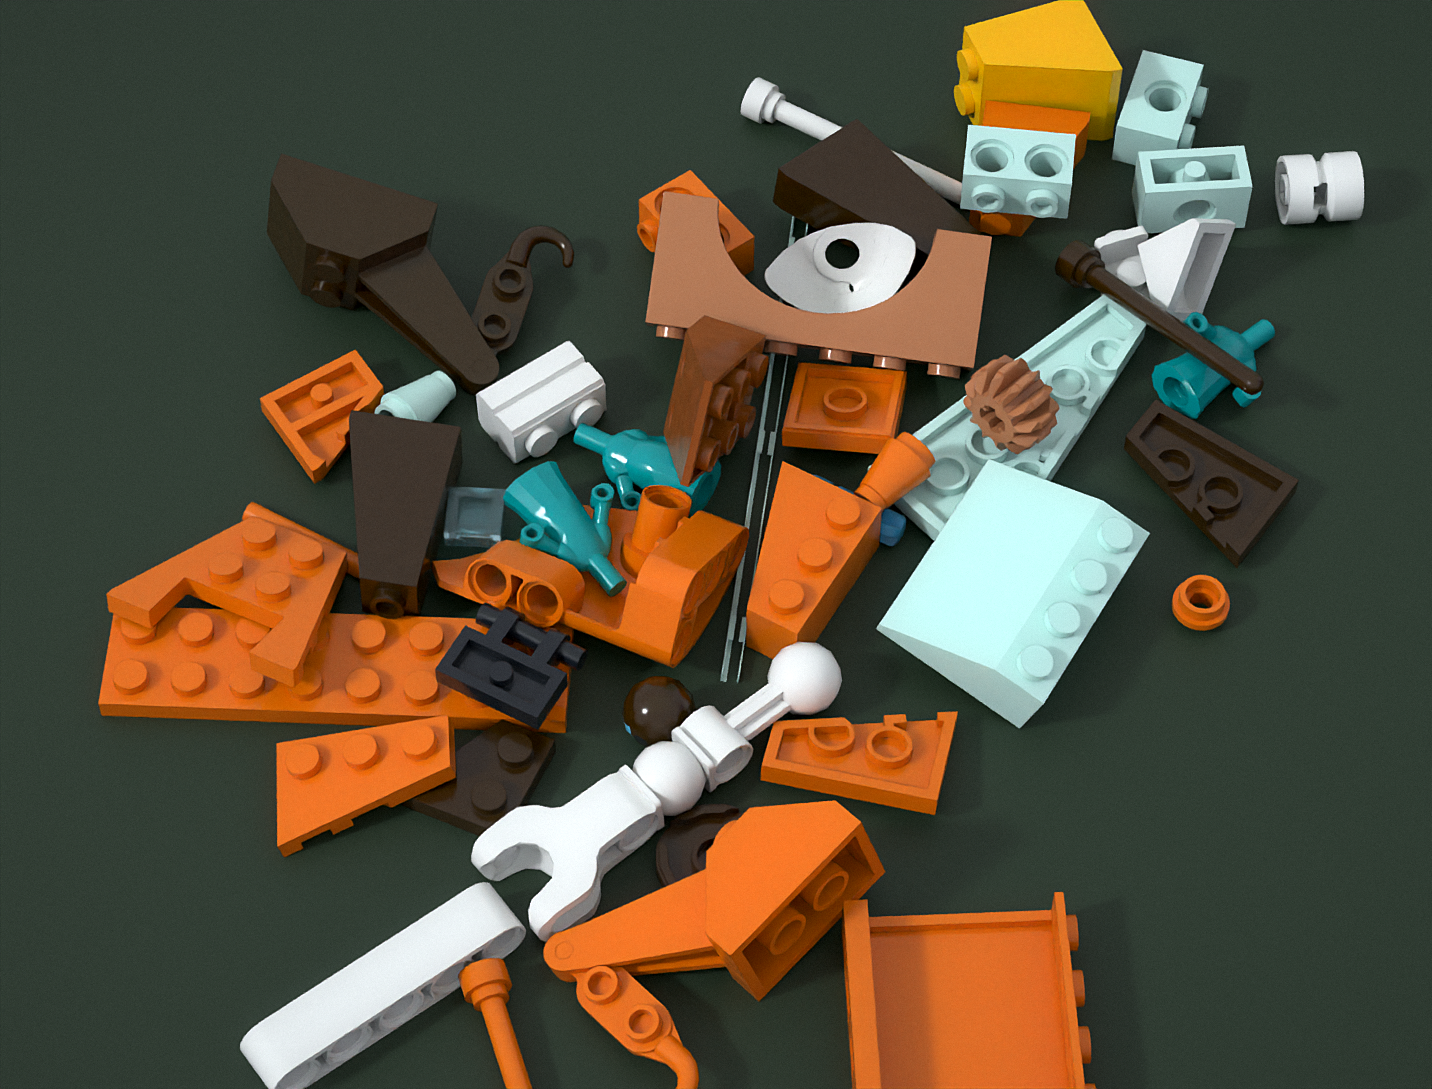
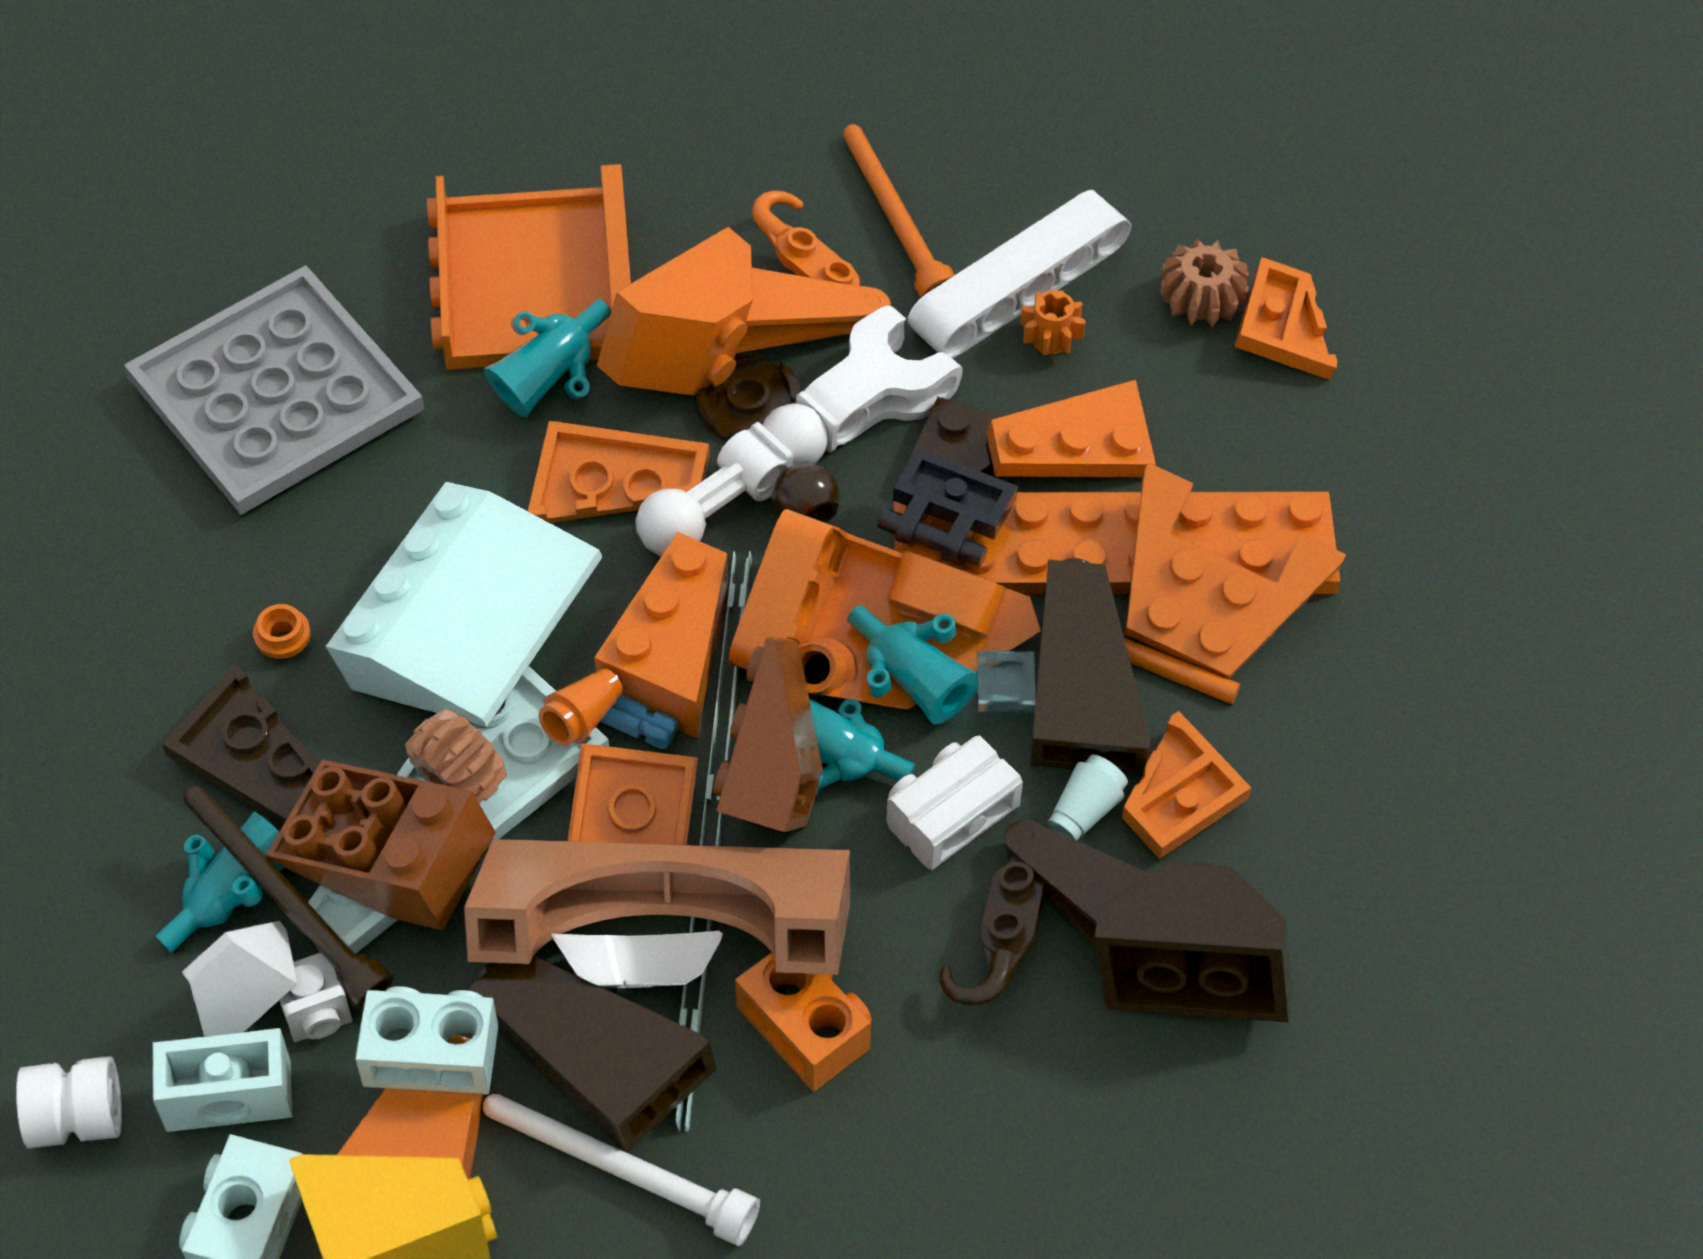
camera: 175 degrees right, 0 degrees up
(89, 919) = (1285, 321): none -> orange wing
(179, 982) = (1204, 282): none -> nougat gear
(362, 901) = (1052, 322): none -> orange gear
(945, 884) = (537, 365): none -> teal piece
(1082, 344) = (385, 841): none -> dark orange slope
(1249, 879) = (273, 388): none -> light grey plate

